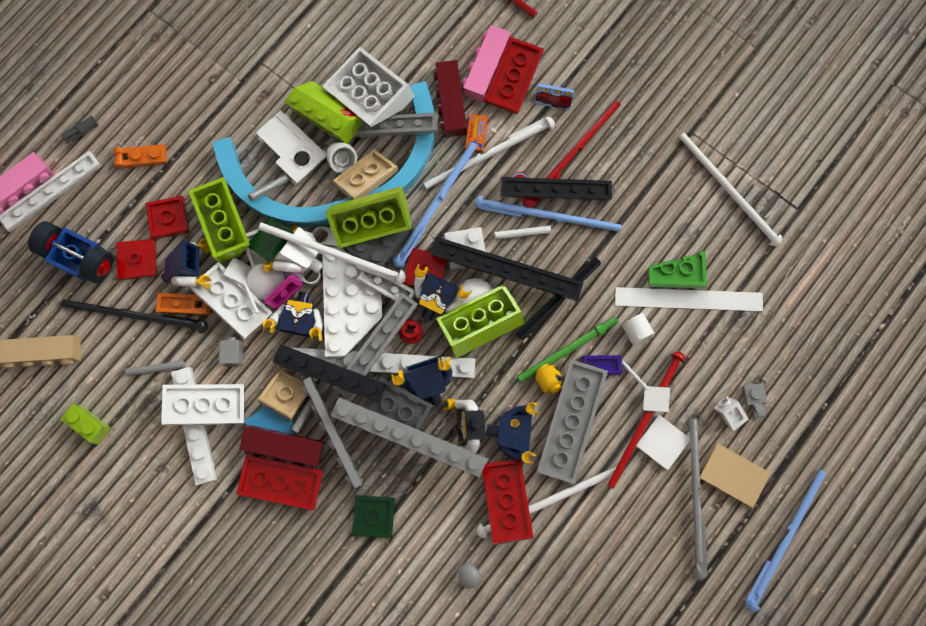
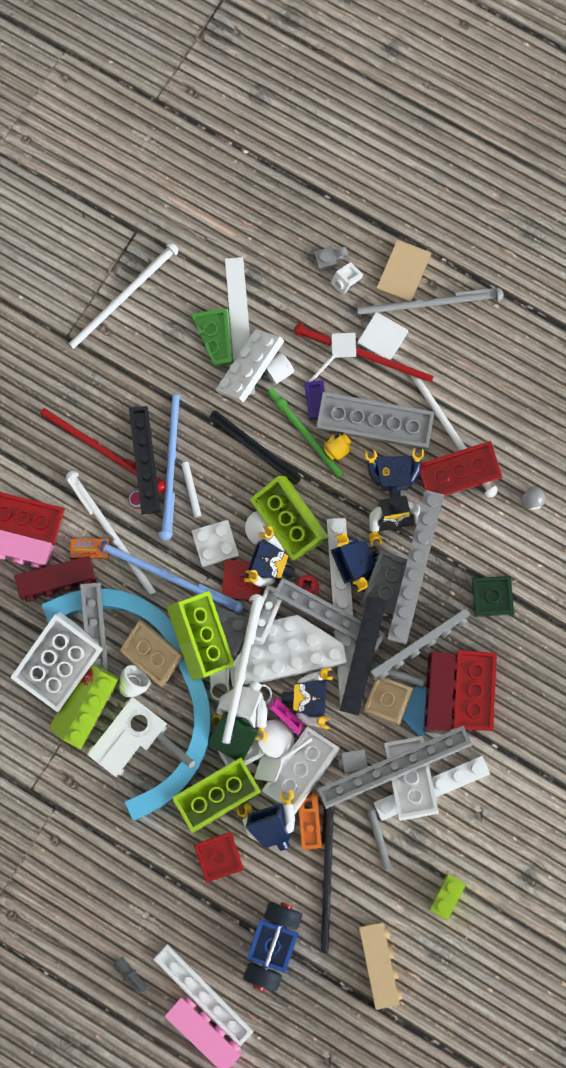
camera: 95 degrees left, 0 degrees up
(136, 259) = (267, 882): red plate -> none
(140, 156) = (152, 901): orange plate -> none
(214, 390) = (394, 767): none -> light grey plate
(507, 269) = (234, 498): black plate -> none
(554, 96) = (42, 474): slope -> none
(643, 300) = (249, 365): none -> white plate
(770, 567) = (482, 234): light blue bar -> none

